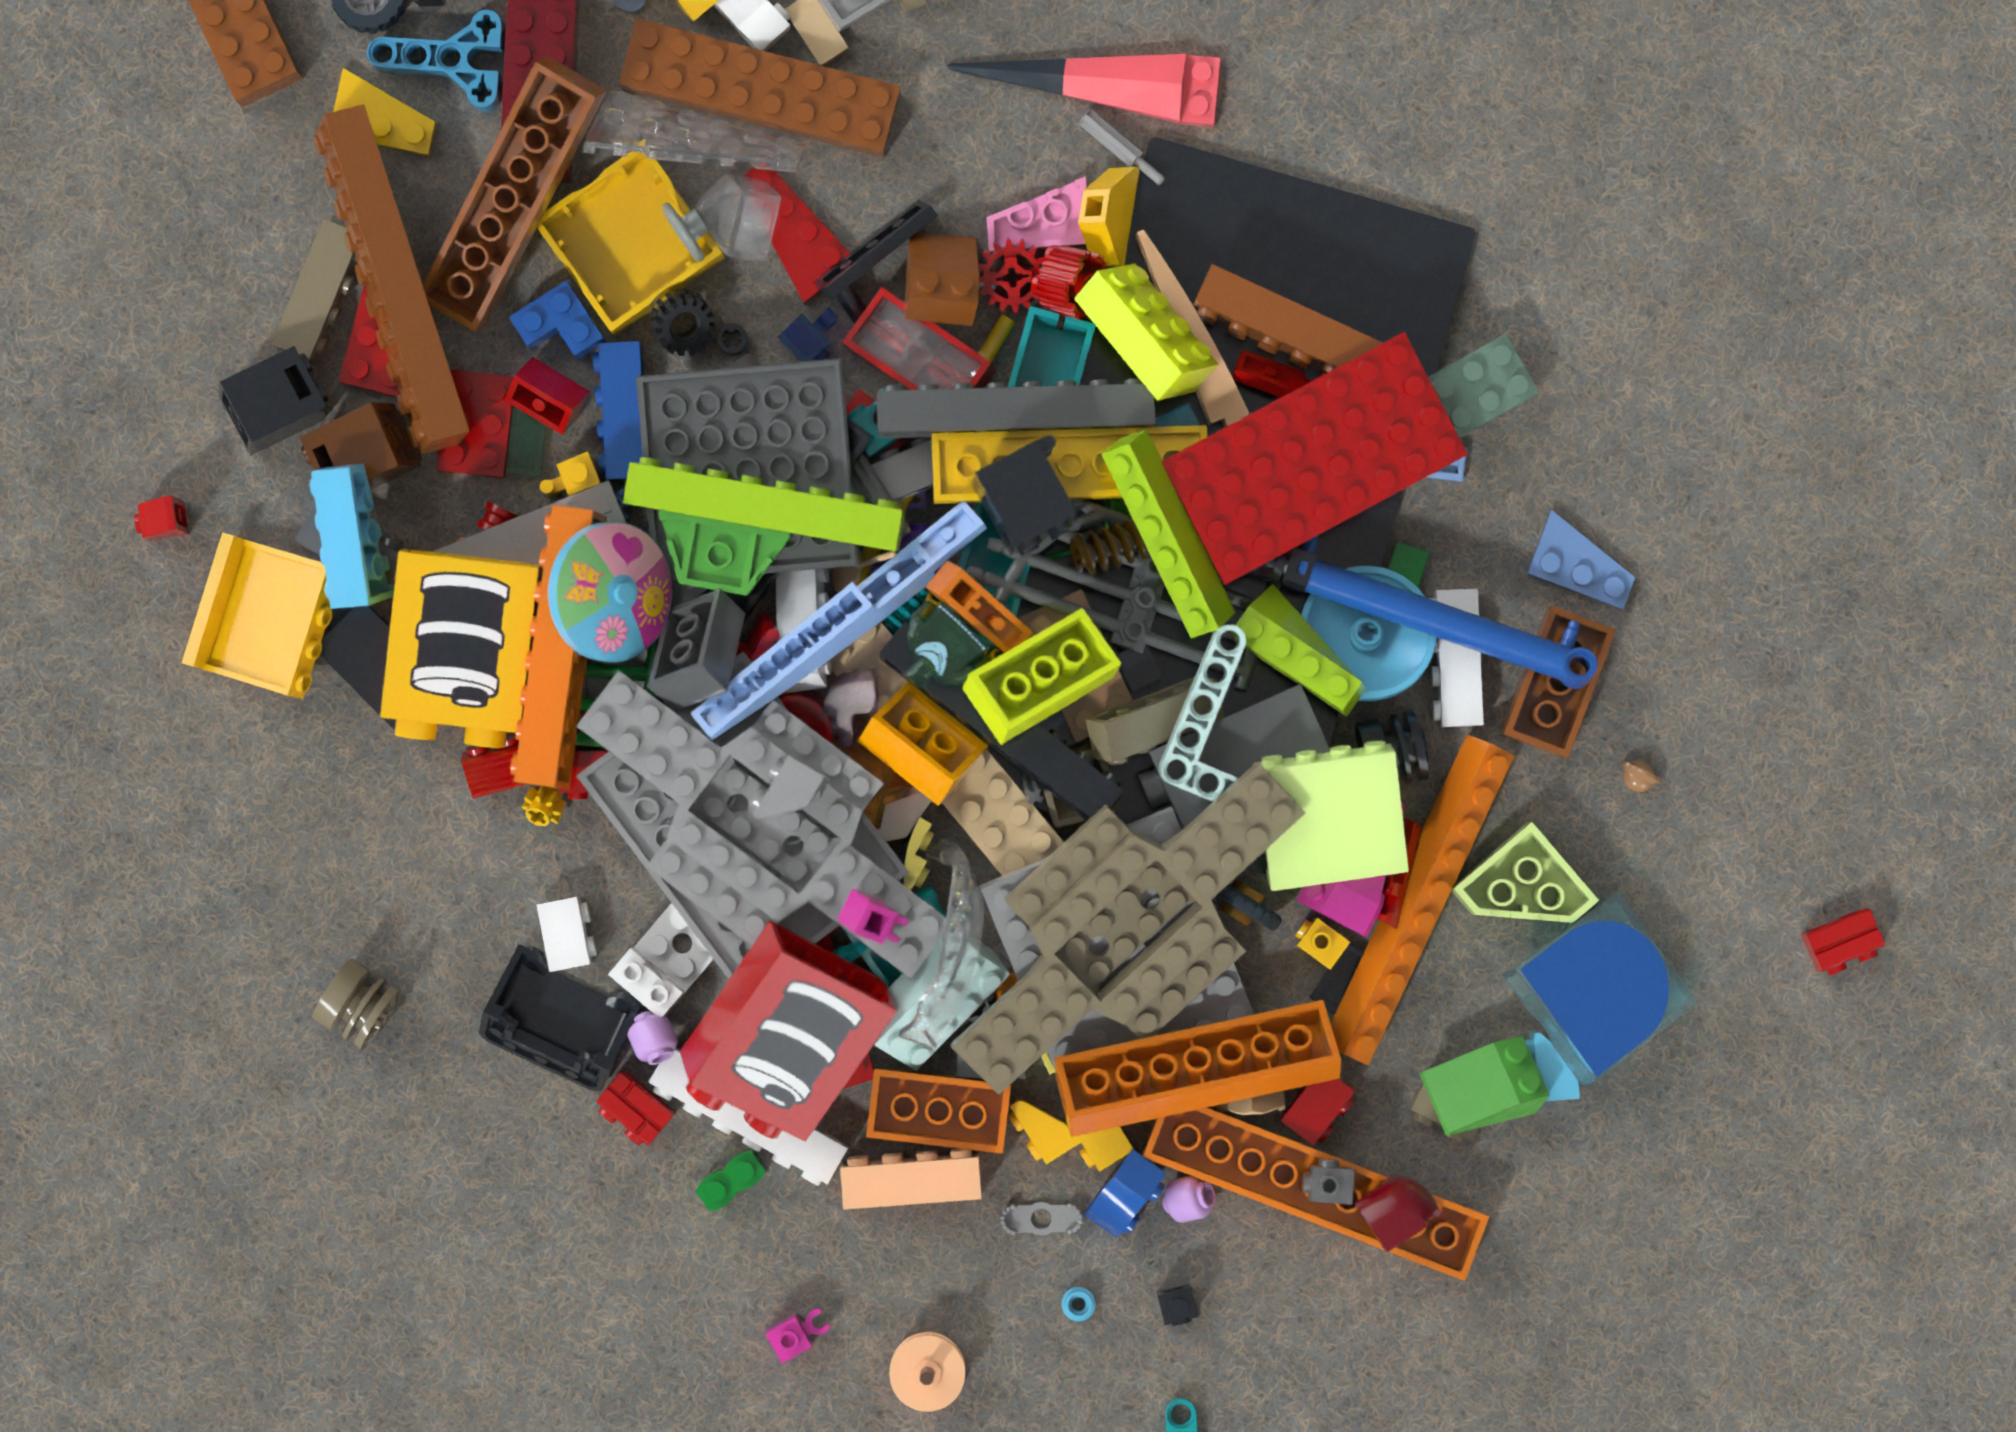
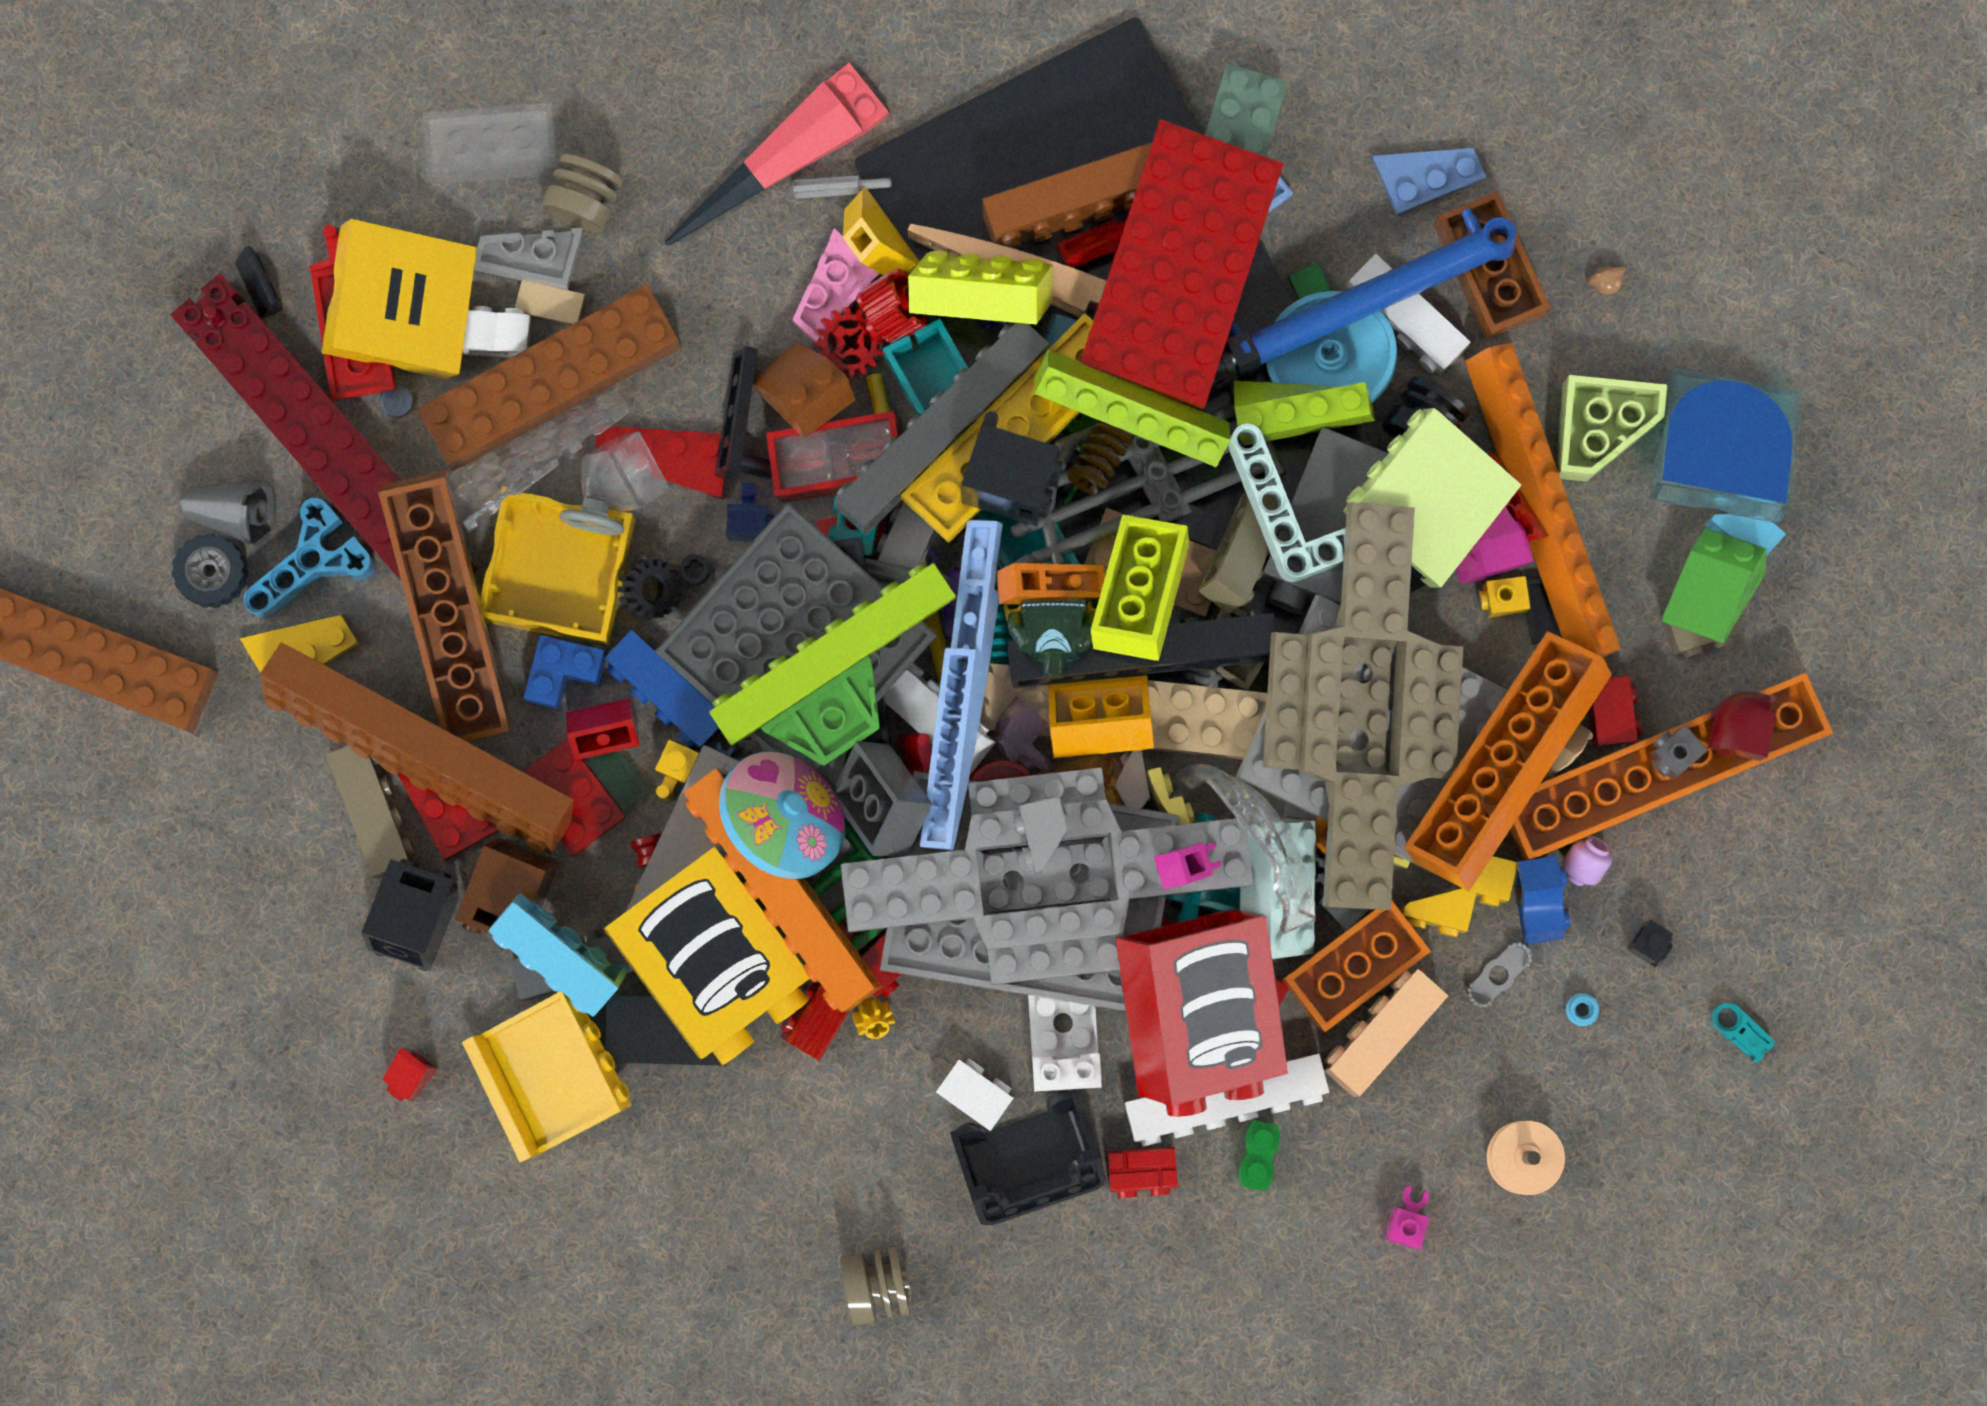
camera: 40 degrees left, 5 degrees down
(652, 1038) = (1108, 1106): lavender head -> none
(845, 575) = (932, 657): light nougat piece -> none
(1245, 904) = (1431, 618): black wheel -> none
(1843, 940) = (1854, 258): red brick -> none

